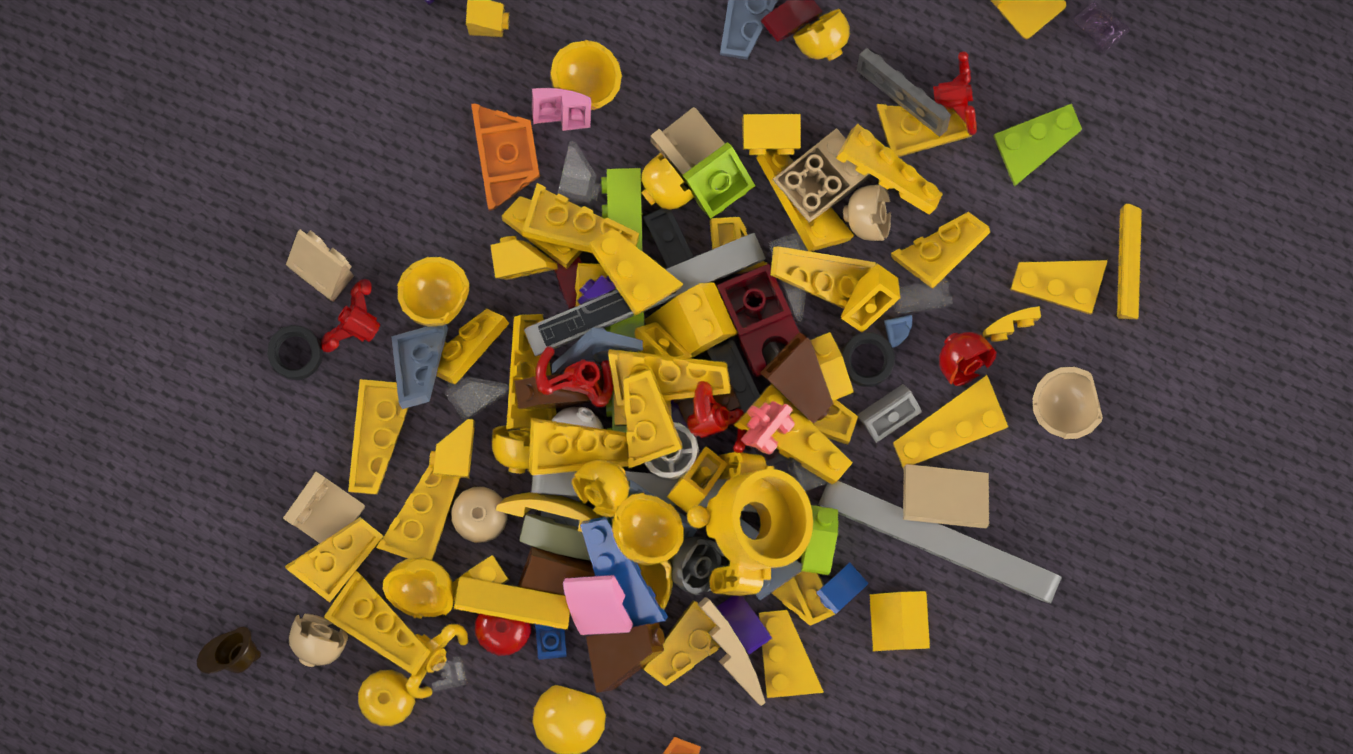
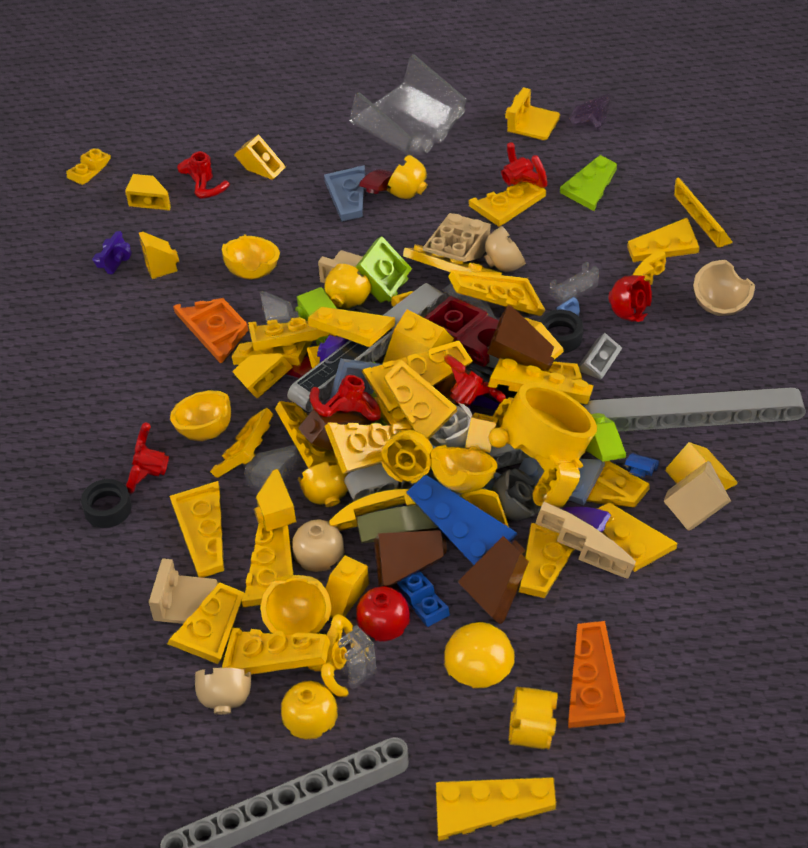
camera: 20 degrees left, 35 degrees down
(228, 652) = (150, 734): dark brown piece -> none
(318, 266) = (99, 427): tan slope -> none
(417, 362) = (211, 462): sand blue wing -> none
(512, 602) = (380, 576): yellow slope -> none
(561, 105) = (242, 276): bright pink slope -> none
(597, 605) = (453, 544): bright pink slope -> none
(765, 423) = (514, 366): coral hips -> none
(771, 132) = (405, 227): yellow slope -> none
(871, 298) = (539, 289): yellow slope -> none
(871, 653) = (697, 496): none -> tan slope
(881, 161) = (495, 217): yellow wing -> none
(903, 92) = (483, 182): flat silver plate -> none
(939, 253) = (570, 253): yellow wing -> none
(946, 496) = (678, 379): tan tile -> none
(959, 422) = (650, 345): yellow wing -> none

